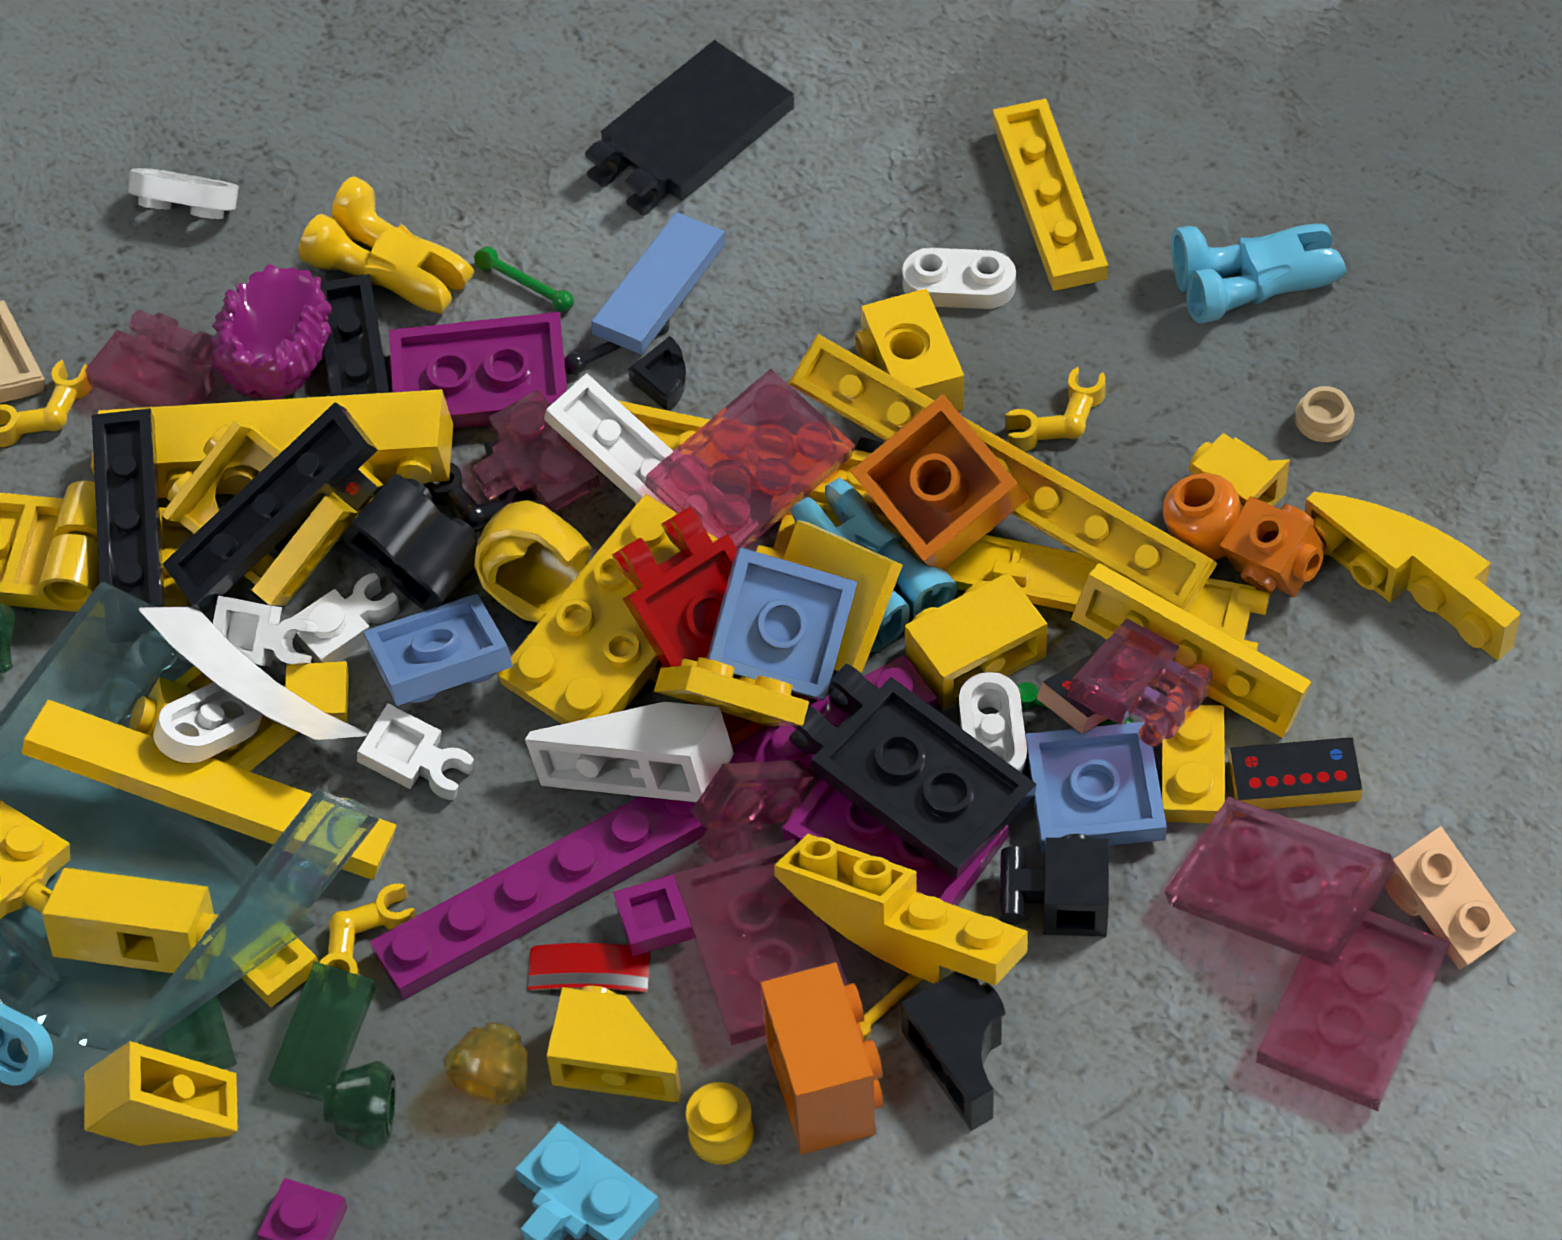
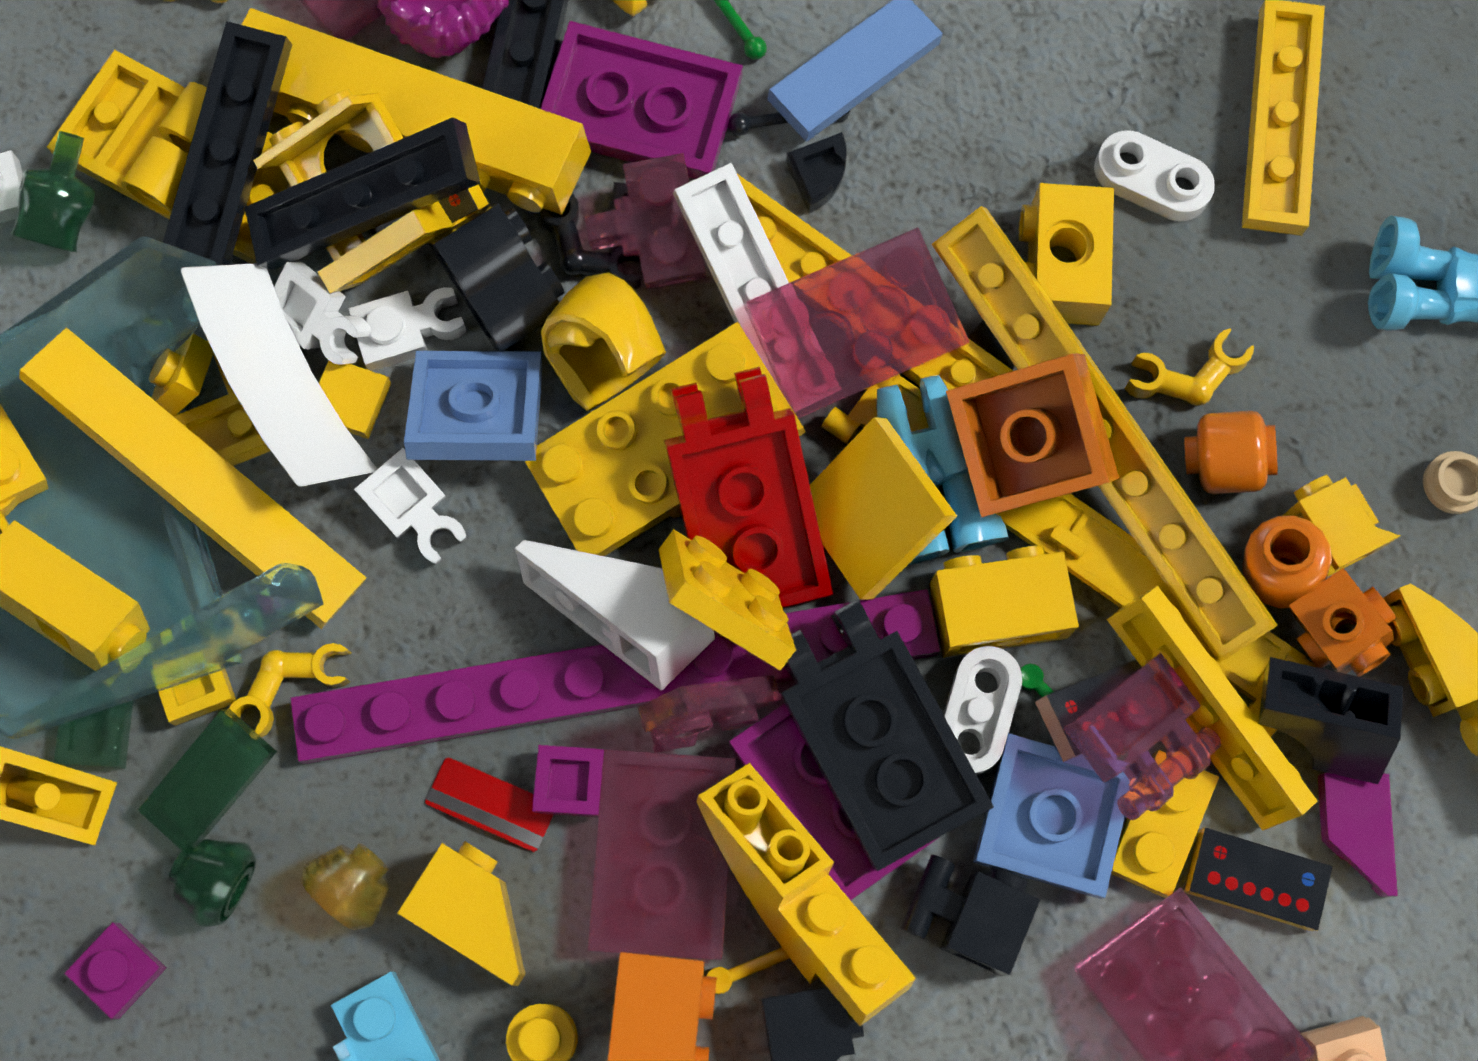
camera: 15 degrees right, 20 degrees up
(204, 724) = (208, 406): white plate -> none
(782, 622) = (809, 531): medium blue plate -> none
(1121, 456) = (1232, 452): none -> orange head
(1302, 612) = (1339, 717): none -> black arch
(1363, 702) = (1360, 827): none -> magenta tile

